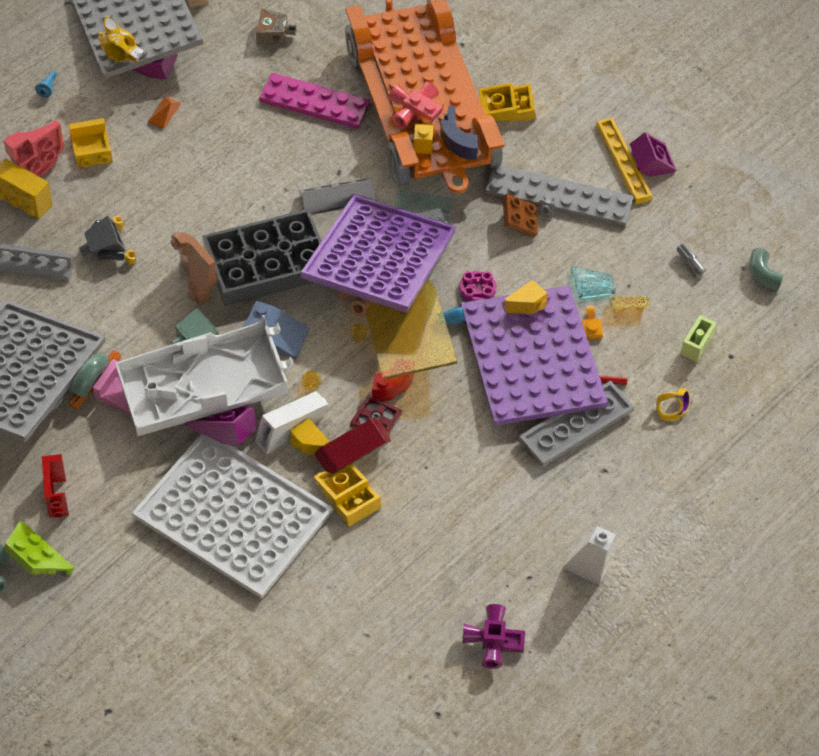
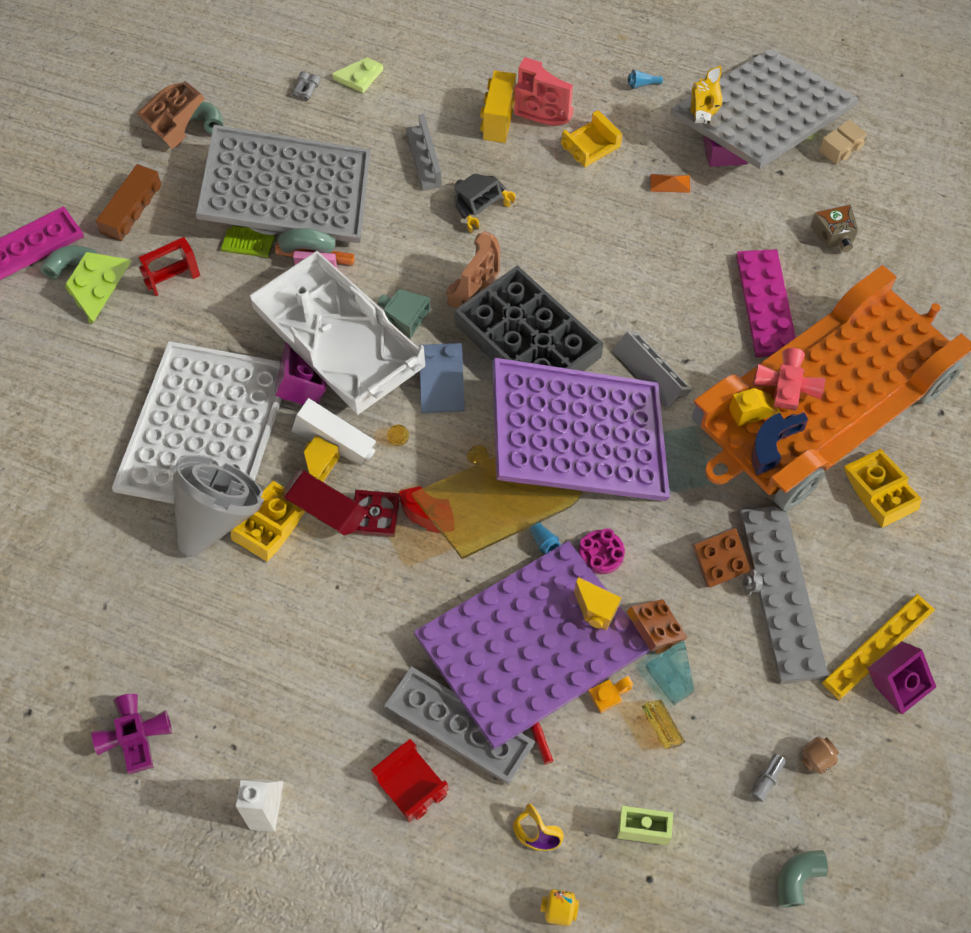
camera: 70 degrees right, 5 degrees up
(52, 427) = (247, 242): none -> lime window
(329, 514) = (210, 501): none -> light grey cone
(555, 274) = (656, 625): none -> dark orange plate
(607, 469) = (409, 781): none -> red panel
(688, 224) = (819, 755): none -> medium nougat head
(733, 409) = (560, 907): none -> yellow head

